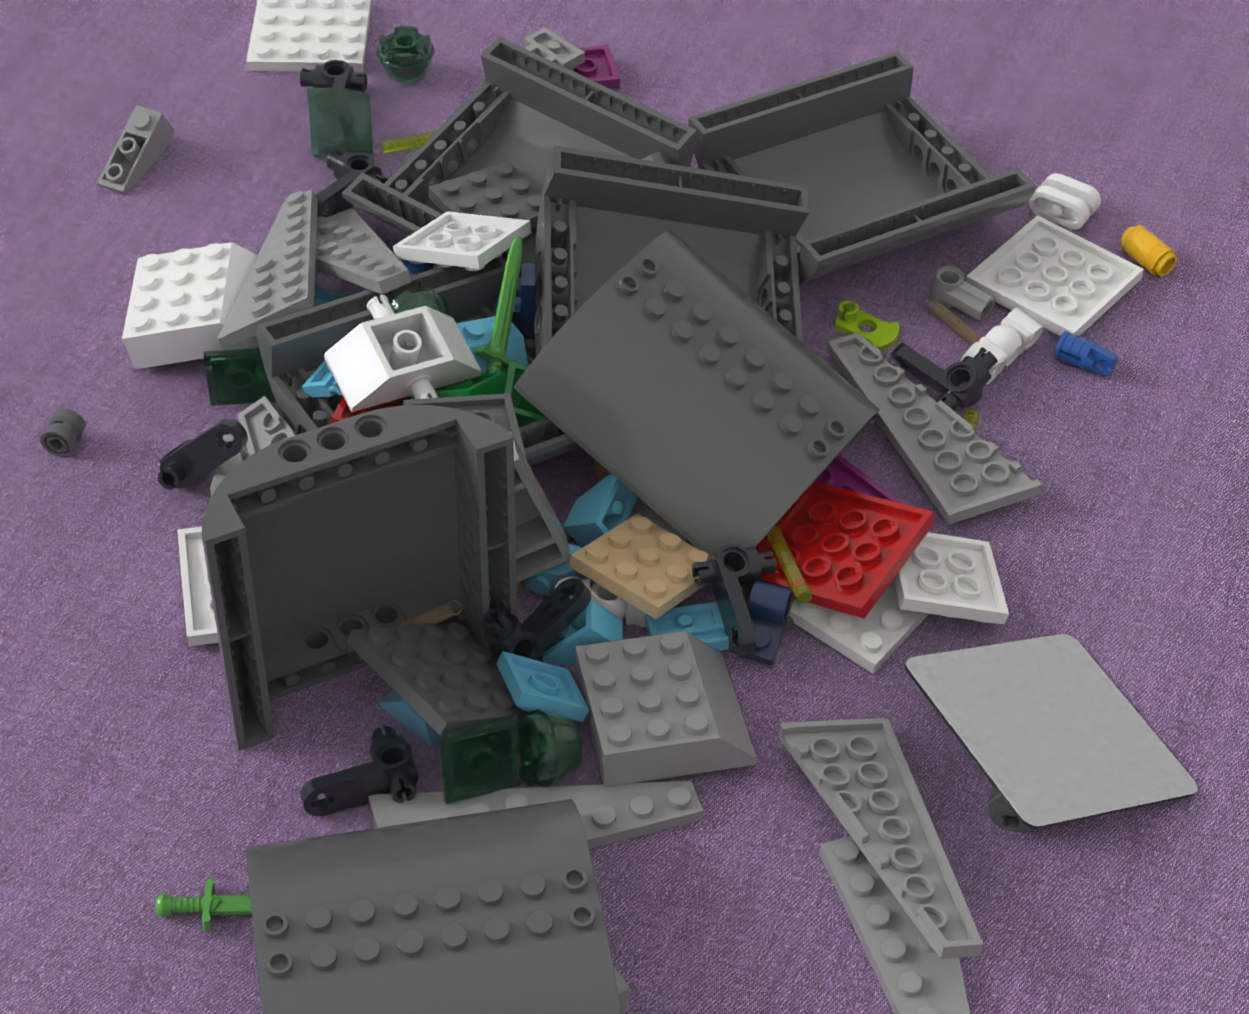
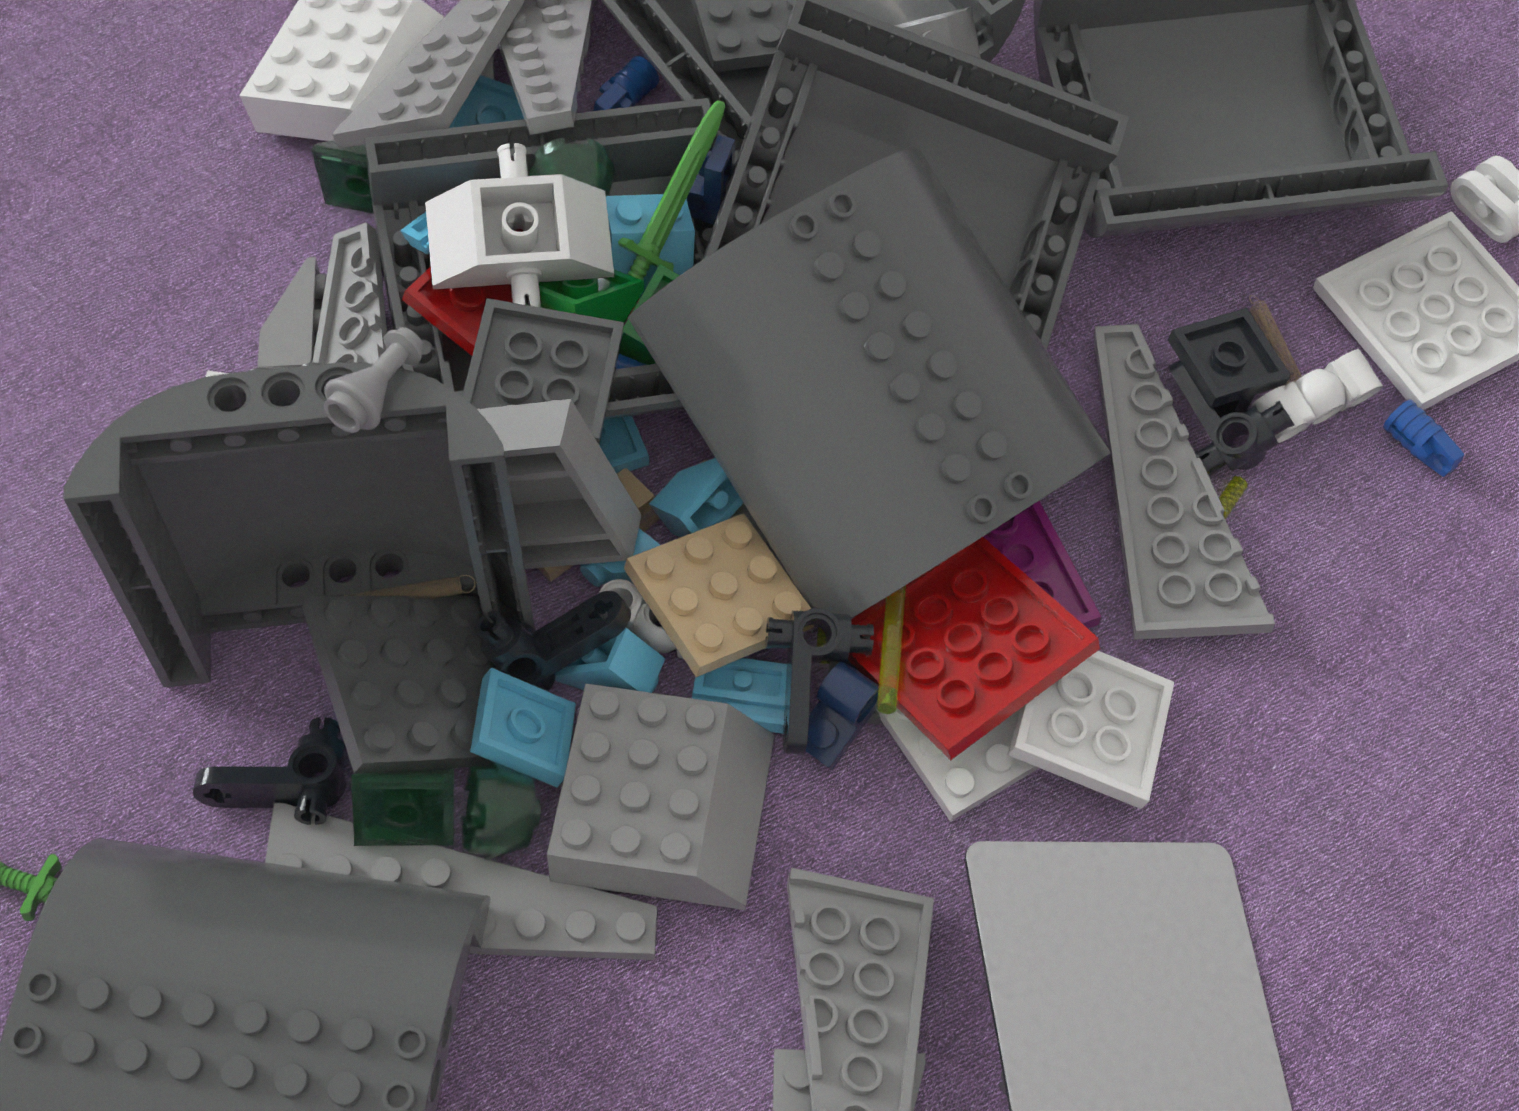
camera: 20 degrees right, 15 degrees up
(63, 432) = (137, 198): dark grey wheel -> none
(201, 454) = (261, 282): black piece -> none
(395, 425) = (358, 397): none -> light grey piece
(461, 240) = (669, 76): white plate -> none
(882, 337) = (1150, 297): lime piece -> none
(933, 333) = (1229, 360): none -> black bracket
(953, 291) = (1291, 296): light grey piece -> none

